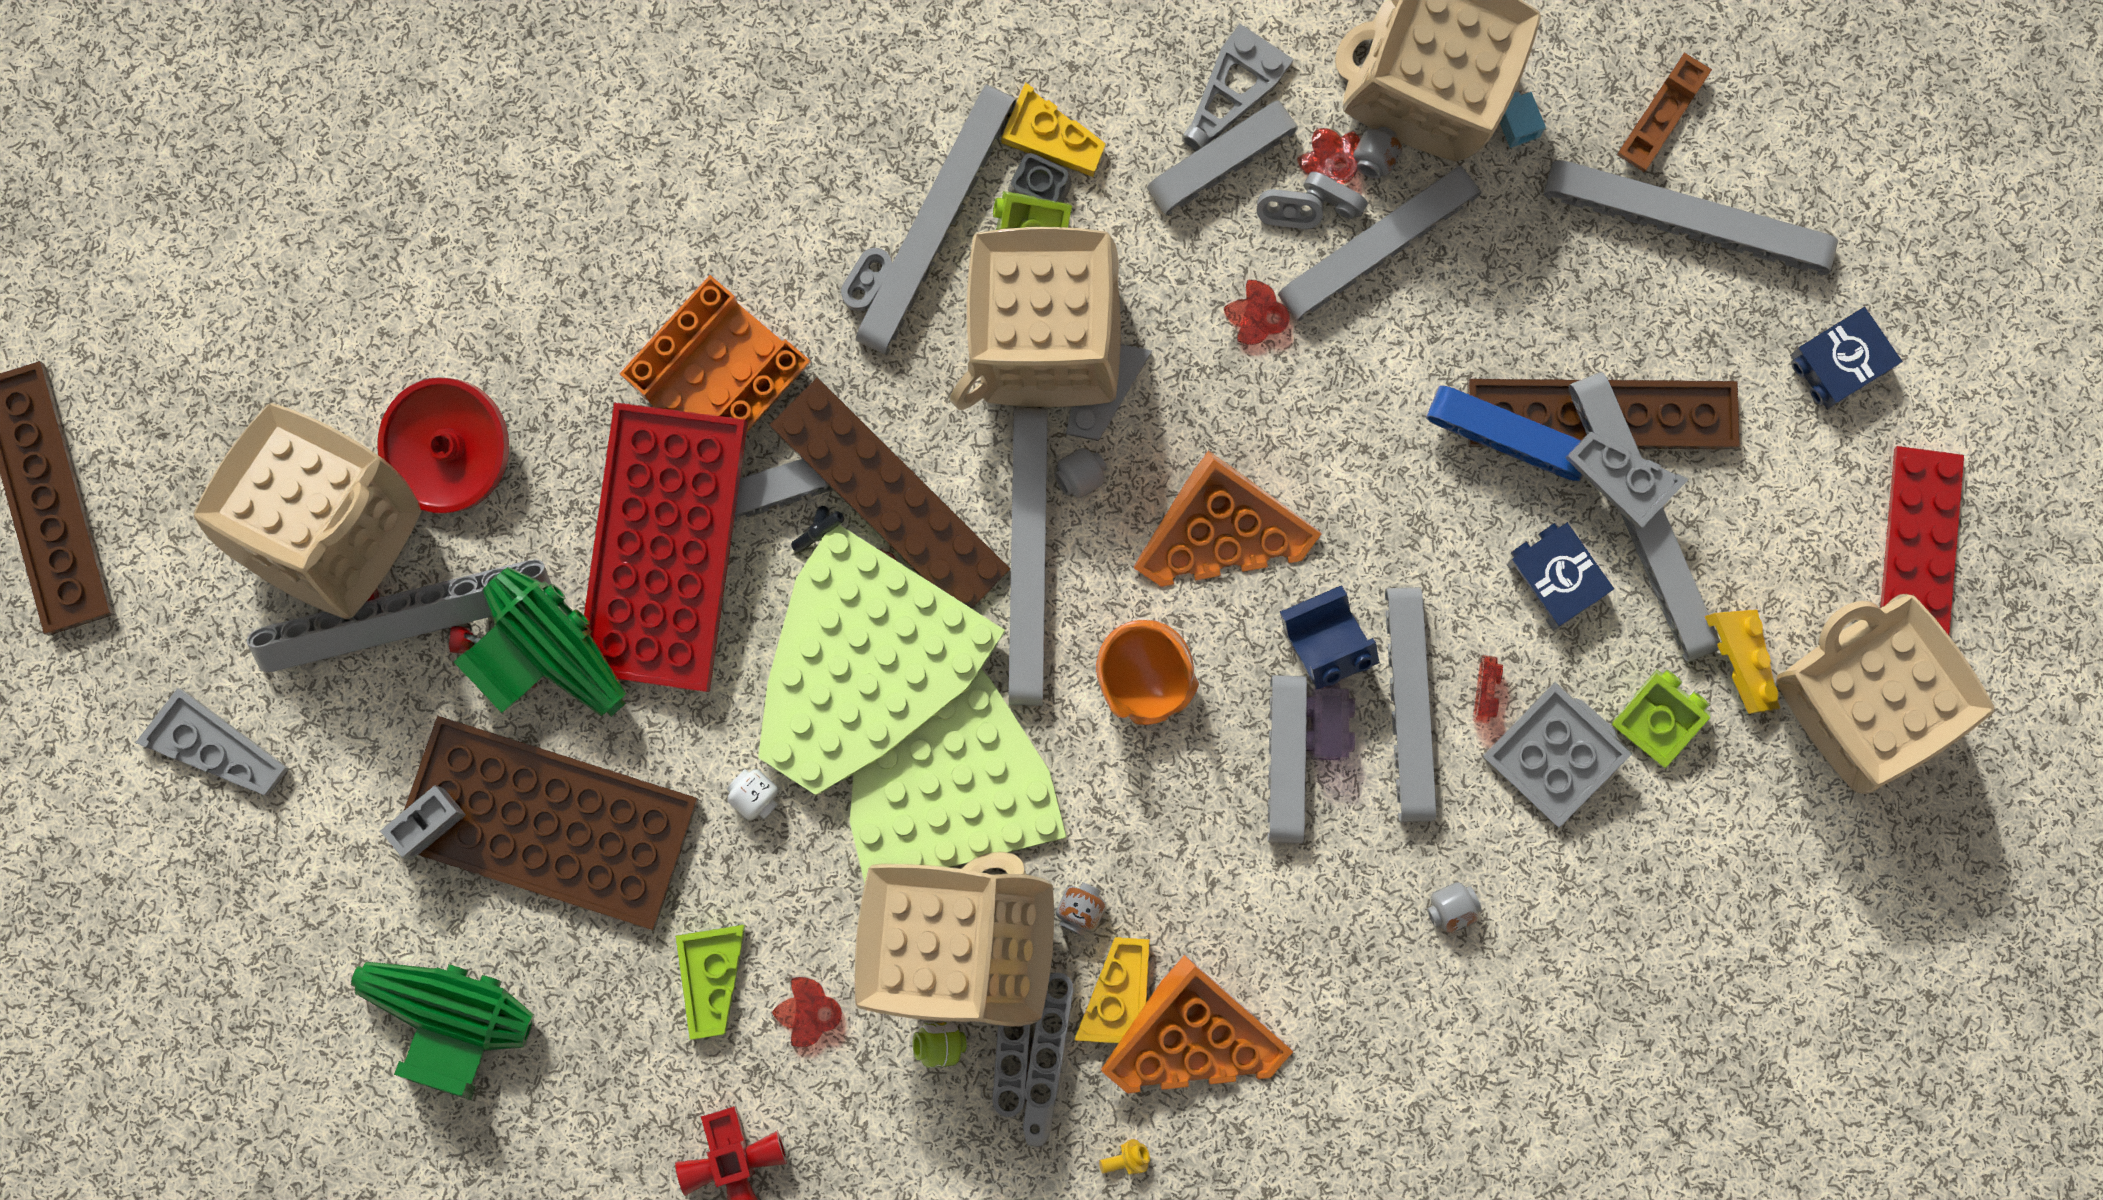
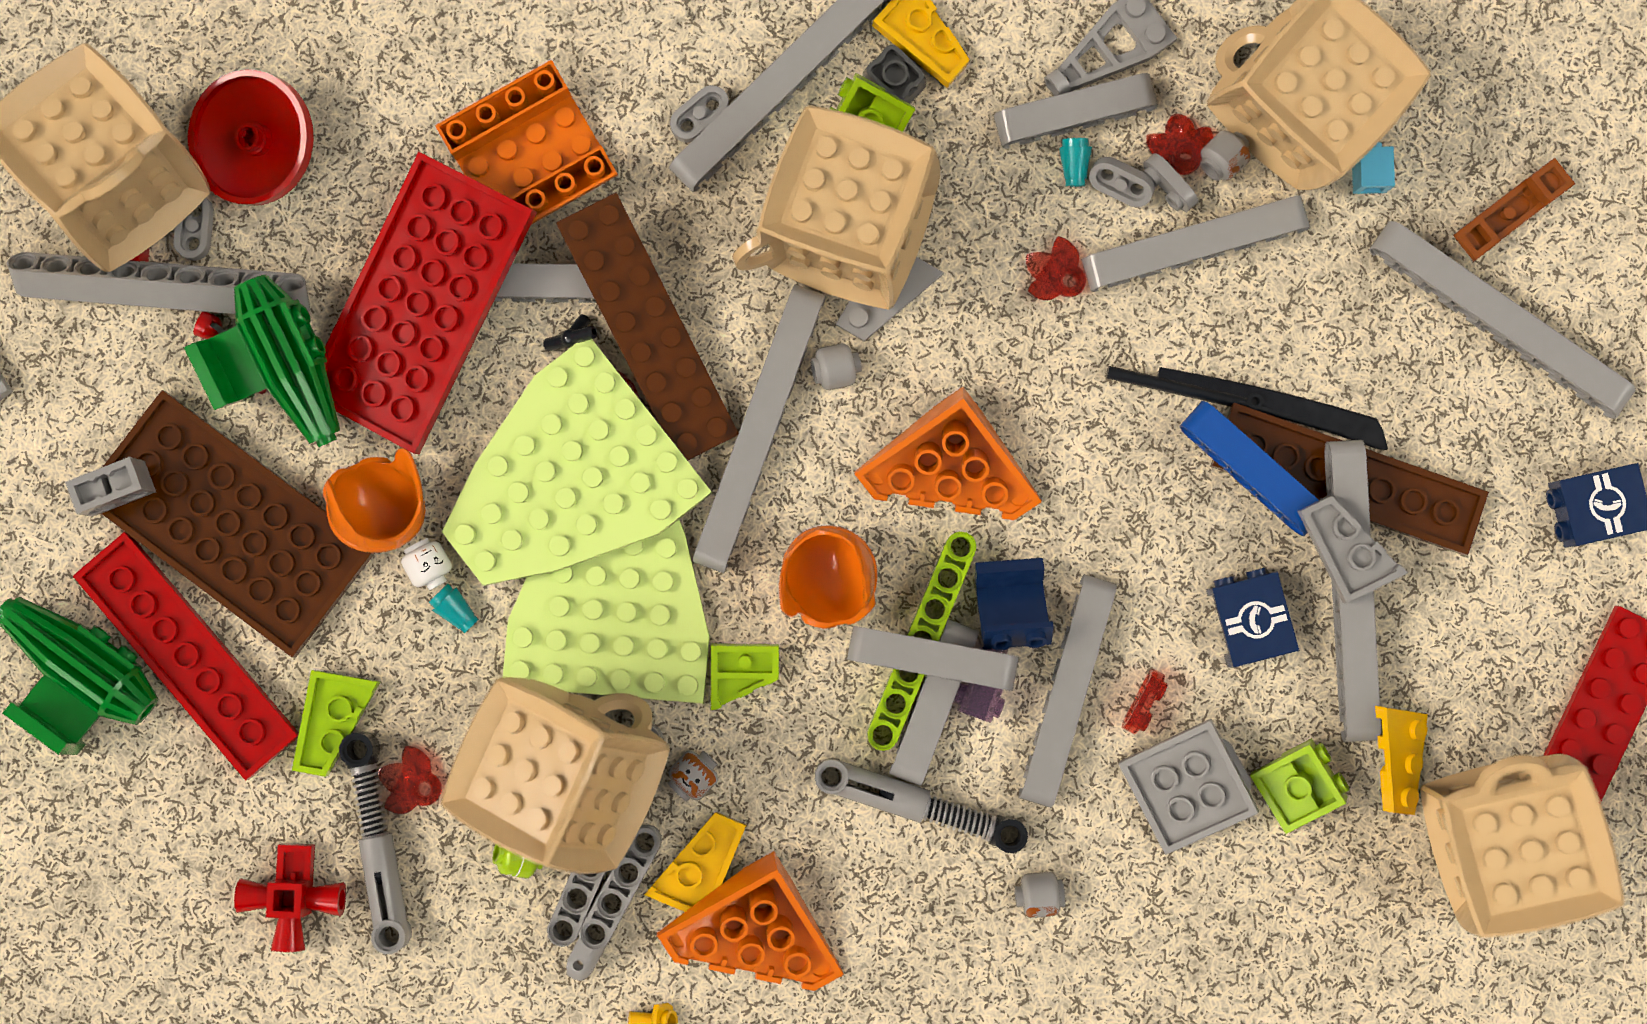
camera: 20 degrees right, 5 degrees up
(418, 550) = (195, 228): none -> light grey plate
(548, 965) = (186, 655): none -> red plate
(687, 749) = (376, 503): none -> orange piece
(793, 829) = (453, 608): none -> teal cone
(797, 1084) = (376, 847): none -> piece
(1092, 792) = (741, 669): none -> lime wing
(1238, 203) = (1075, 160): none -> teal cone
(1262, 689) = (933, 627): none -> lime beam
(1272, 713) = (932, 658): none -> light grey beam
(1305, 861) = (916, 804): none -> piece
(1519, 366) = (1277, 404): none -> black piece

